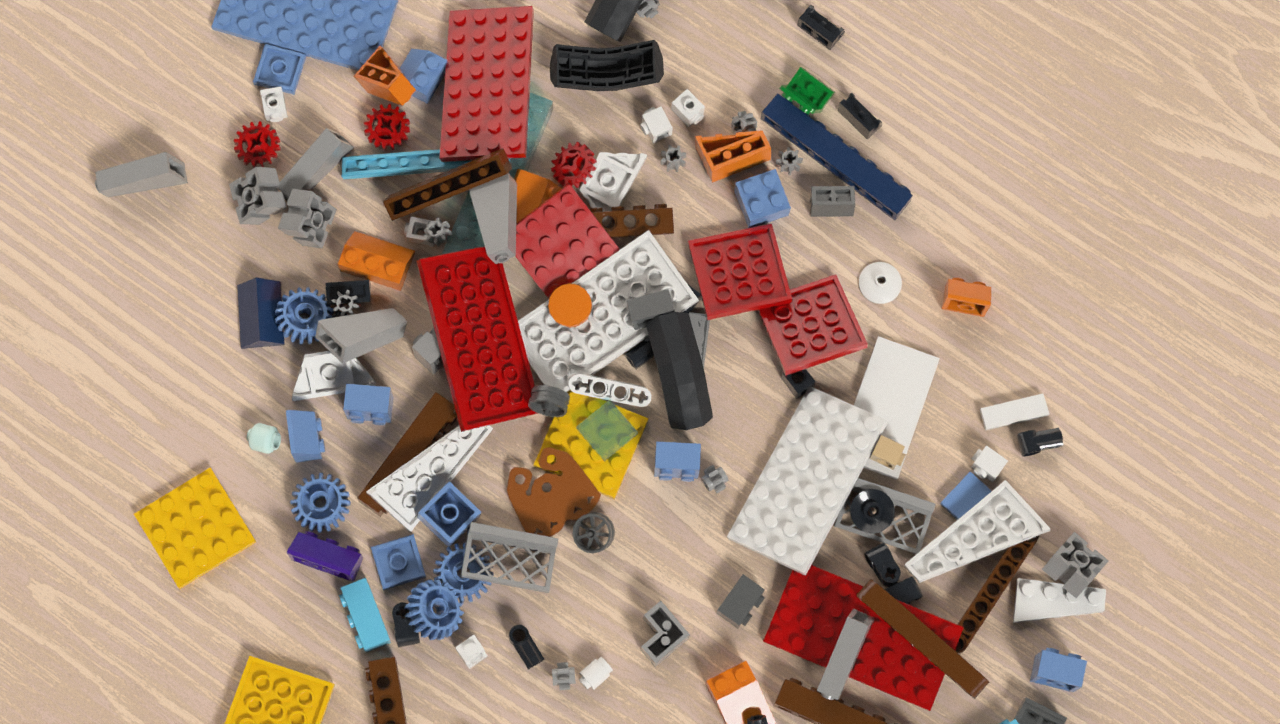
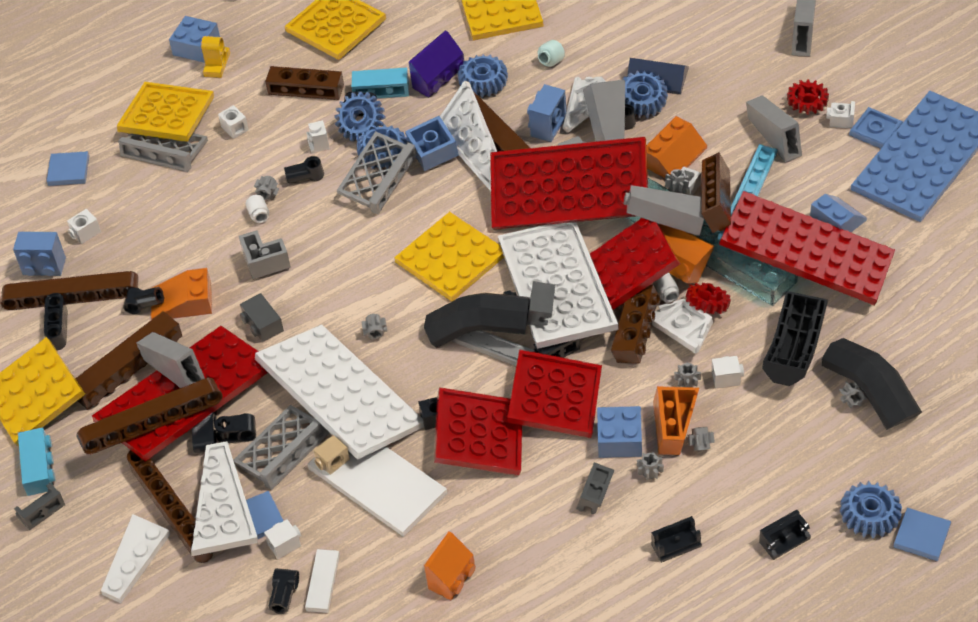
camera: 120 degrees right, 25 degrees down
(257, 195) = (757, 80): light grey brick -> none
(304, 435) = (539, 68): medium blue slope -> none
(307, 218) = (724, 105): light grey brick -> none
(351, 305) = (637, 111): light grey gear -> none
(357, 288) = (651, 122): black hinge -> none
(384, 78) = (837, 179): orange wedge -> none
(394, 121) = (794, 181): red gear -> none
(398, 562) = (412, 113): medium blue tile -> none
(549, 401) = (494, 222): dark grey wheel -> none
(554, 506) = (409, 220): dark orange piece -> none
(570, 305) = (573, 257): orange tile -> none
(593, 532) = (370, 232): dark grey wheel -> none
(607, 430) = (452, 260): clear light blue tile -> none
(608, 393) = (499, 252): white beam -> none
(677, 461) = (401, 298): medium blue brick -> none
(688, 108) = (734, 400): white brick -> none
(807, 91) = (712, 492): green bracket -> none
(836, 156) = (639, 506): dark blue brick -> none
(878, 292) = (501, 518): white dish -> none
(884, 511) = (284, 426): black dish -> none
(1058, 670) = (67, 524): medium blue brick -> none
(1075, 565) = (163, 575): light grey brick -> none

